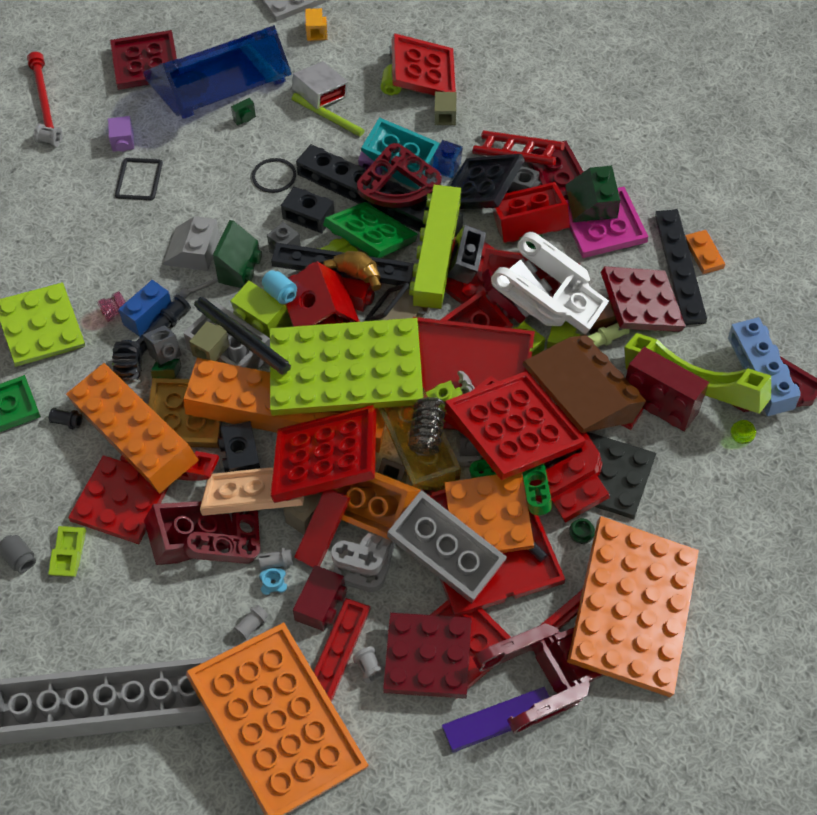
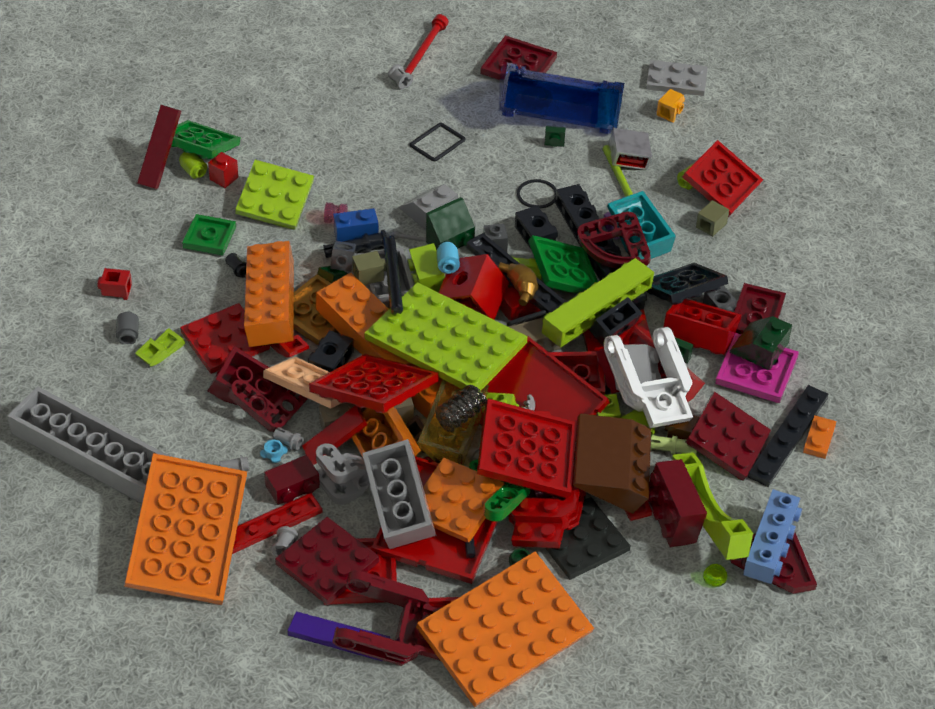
camera: 35 degrees right, 10 degrees down
(121, 133) = (451, 103): medium lavender brick -> none
(127, 359) = (309, 251): black gear -> none
(447, 158) = (675, 253): clear blue brick -> none
(529, 142) = (740, 284): red bar -> none

